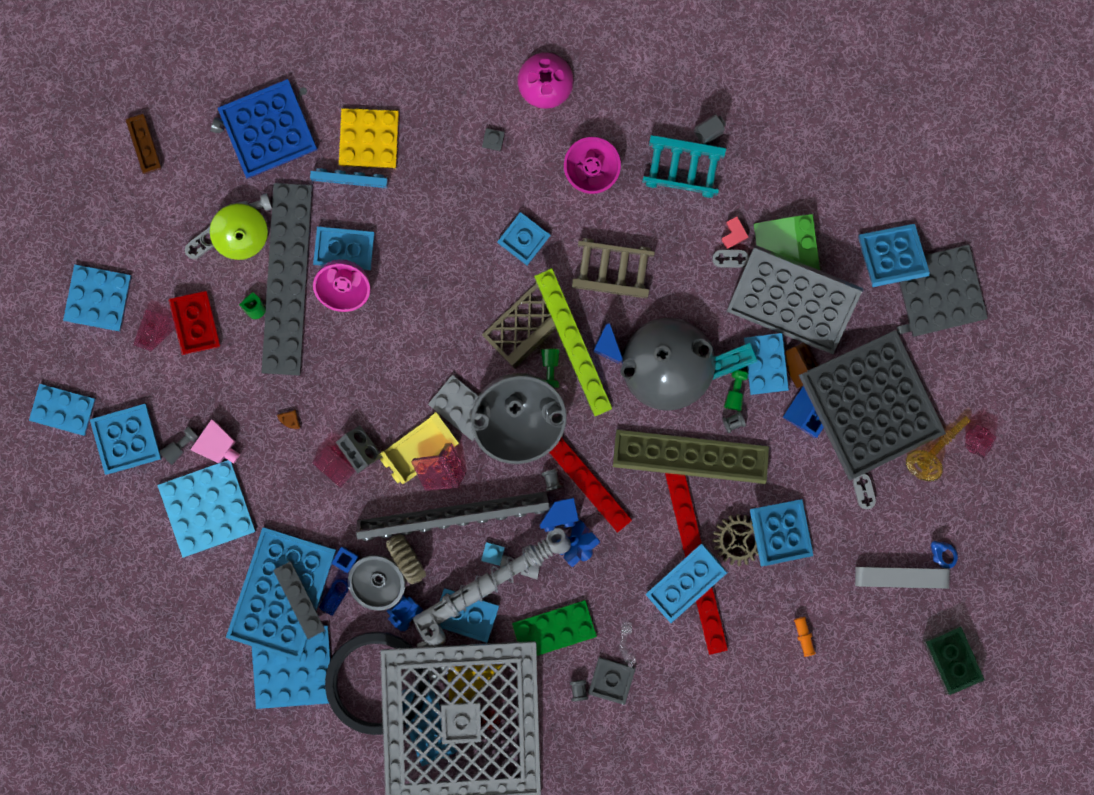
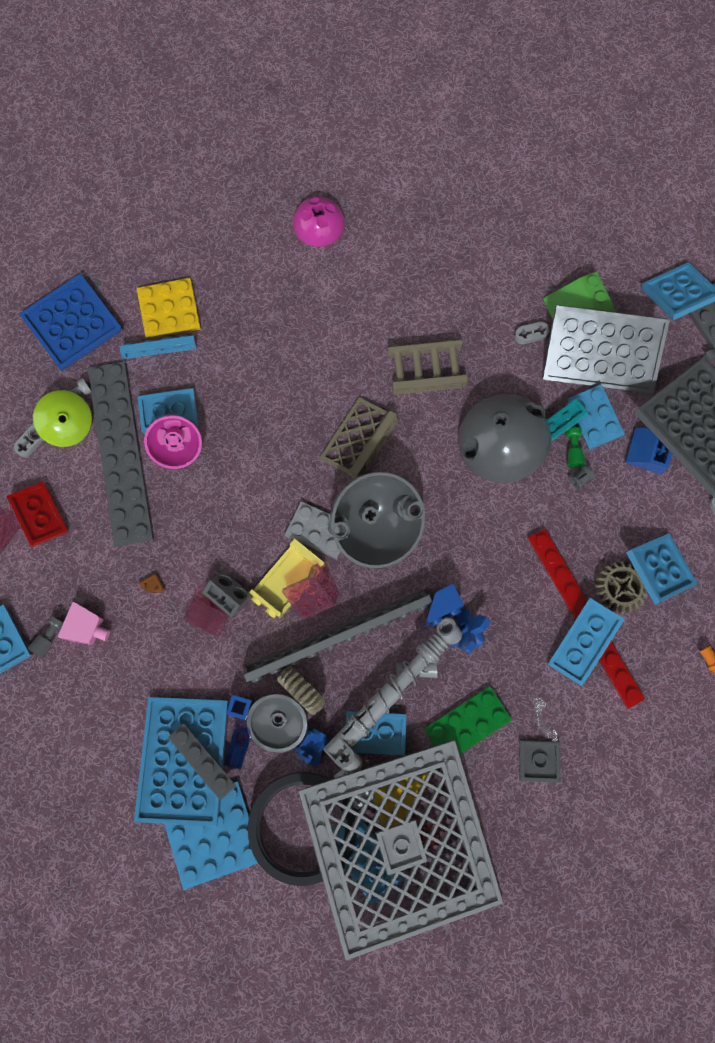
camera: 15 degrees left, 10 degrees down
(206, 508) = (87, 694): medium azure plate -> none
(216, 125) = (22, 330): dark grey hinge -> none
(253, 306) = (95, 485): green plate -> none
(492, 553) = (385, 663): medium azure plate -> none
(493, 139) = (284, 282): dark grey plate -> none
(523, 239) = (336, 361): dark azure plate -> none
(550, 360) = (390, 462): green piece -> none
(552, 479) = (424, 576): dark grey bush -> none
(572, 342) = (408, 440): lime plate -> none
(578, 690) = (510, 780): dark grey bush -> none
(590, 486) = (462, 573): red plate -> none
(597, 156) = (382, 269): dark pink piece -> none
(607, 346) = (444, 435): blue slope -> none
(691, 456) = (551, 519): olive plate -> none
(695, 150) = (472, 246): teal fence -> none
(710, 129) = (480, 223): dark grey brick -> none
(737, 233) = (531, 309): coral piece -> none
(798, 361) = (624, 408): reddish brown panel -> none

